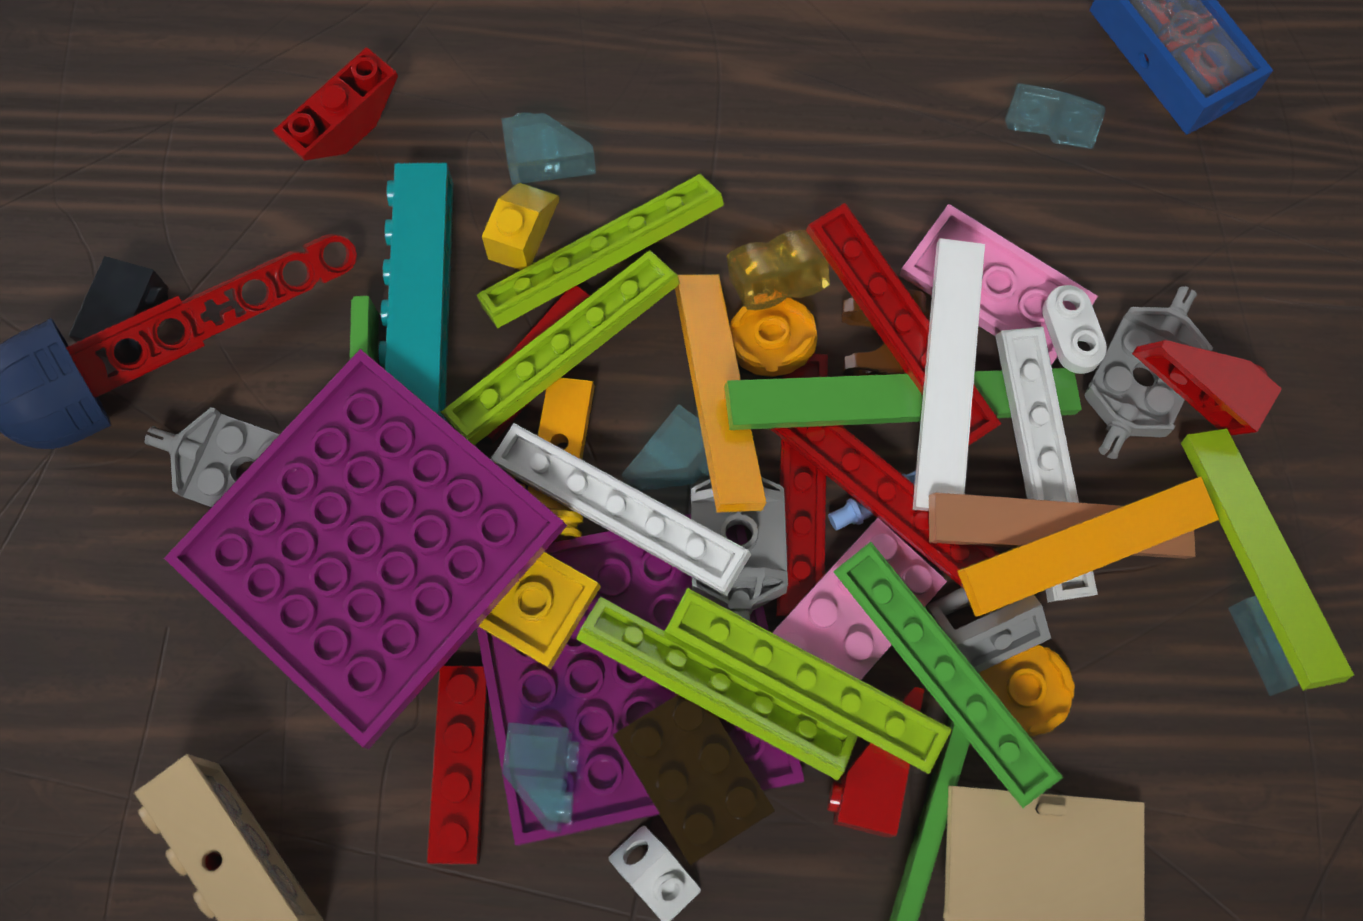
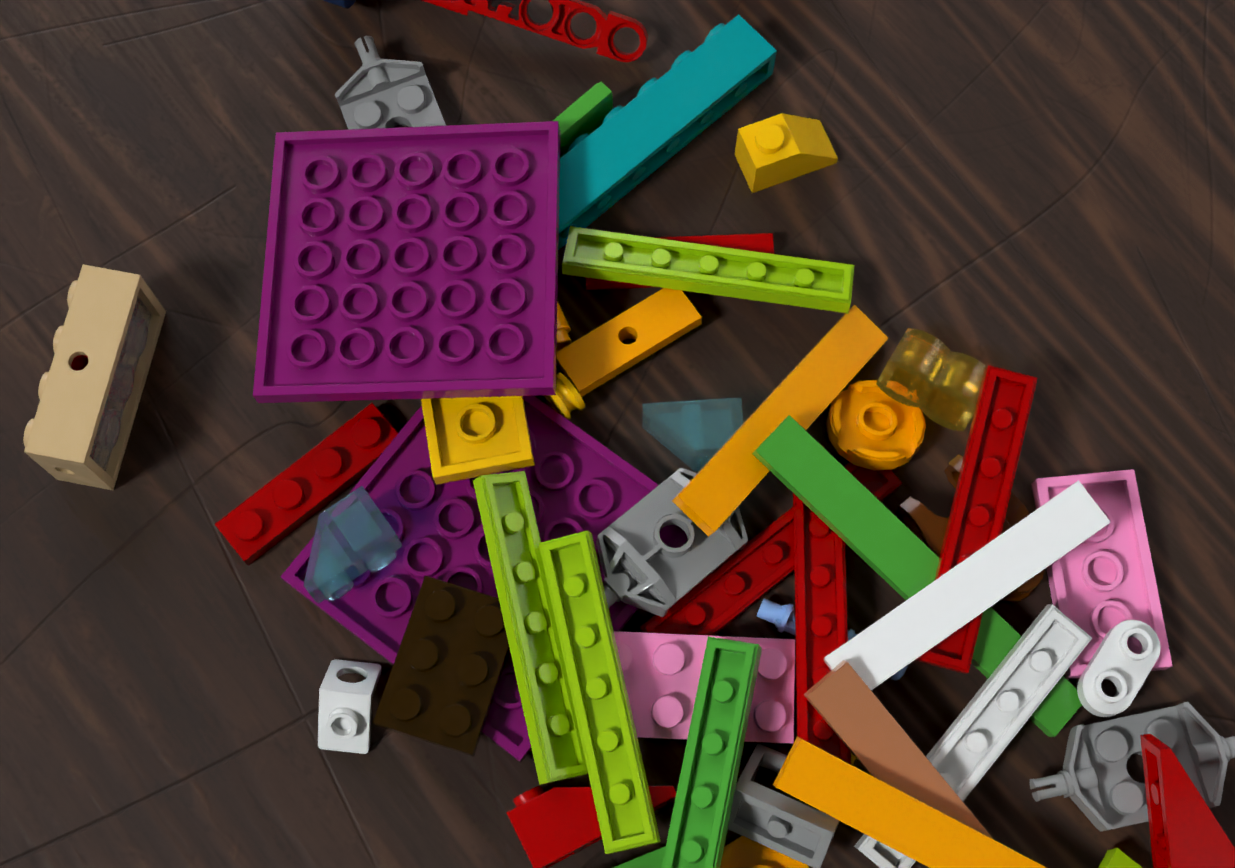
camera: 50 degrees right, 0 degrees up
(544, 149) = (862, 112): clear light blue slope -> none
(599, 250) = (823, 229): lime tile -> none
(621, 509) = (611, 428): white tile -> none

